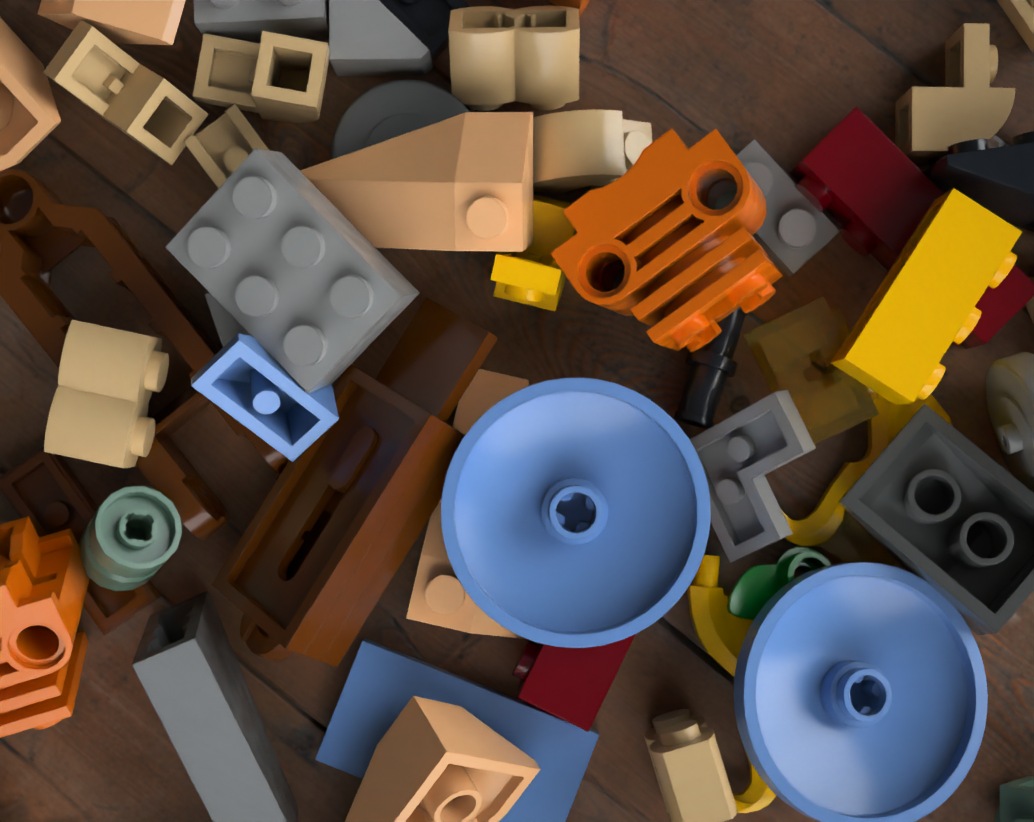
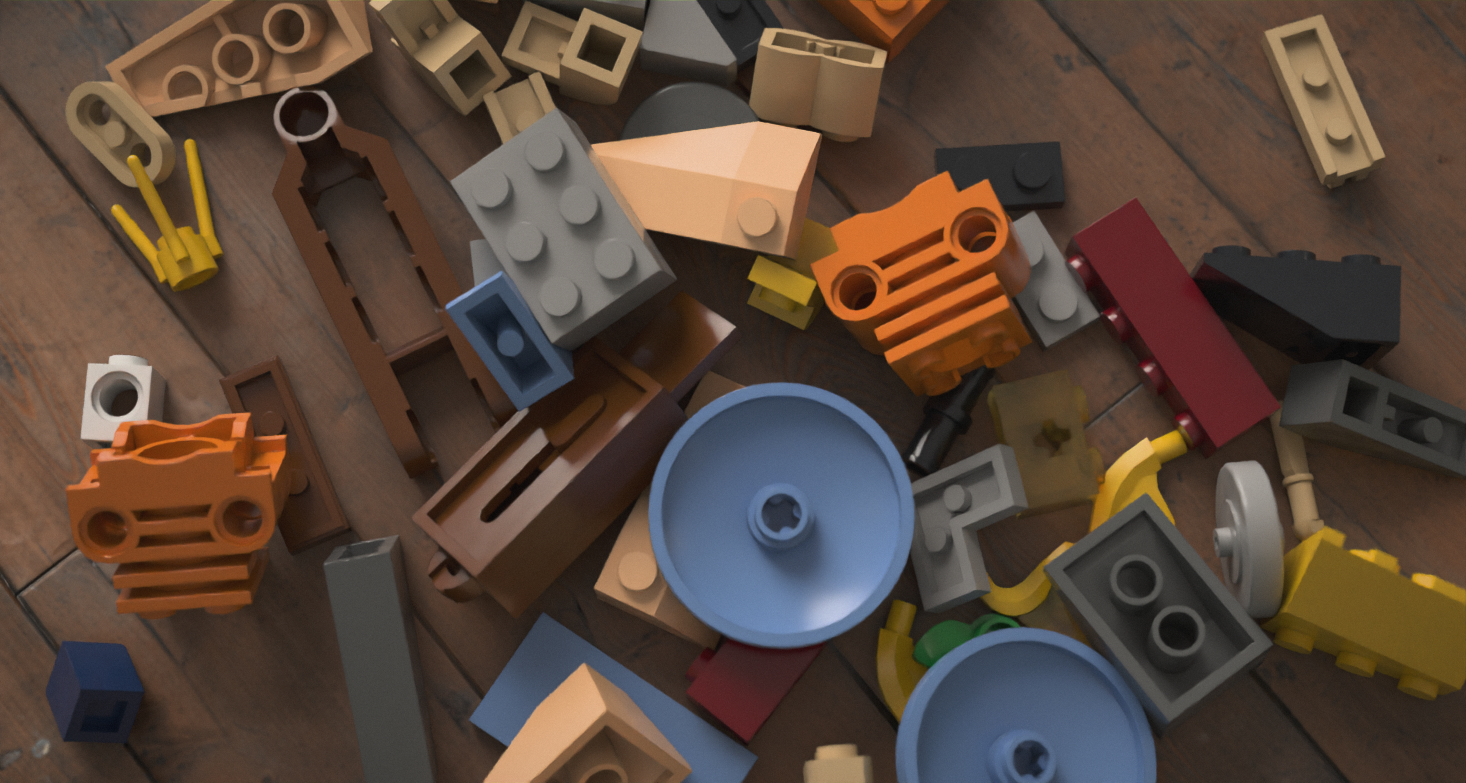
camera: 10 degrees right, 10 degrees down
(105, 395) = (356, 309): tan brick -> none
(130, 538) = (342, 456): sand green wheel -> none
(584, 148) = (860, 179): tan brick -> none
(732, 103) = (1020, 174): none -> black plate
(928, 299) = (1164, 388): yellow brick -> none
(963, 109) = (1245, 221): tan brick -> none

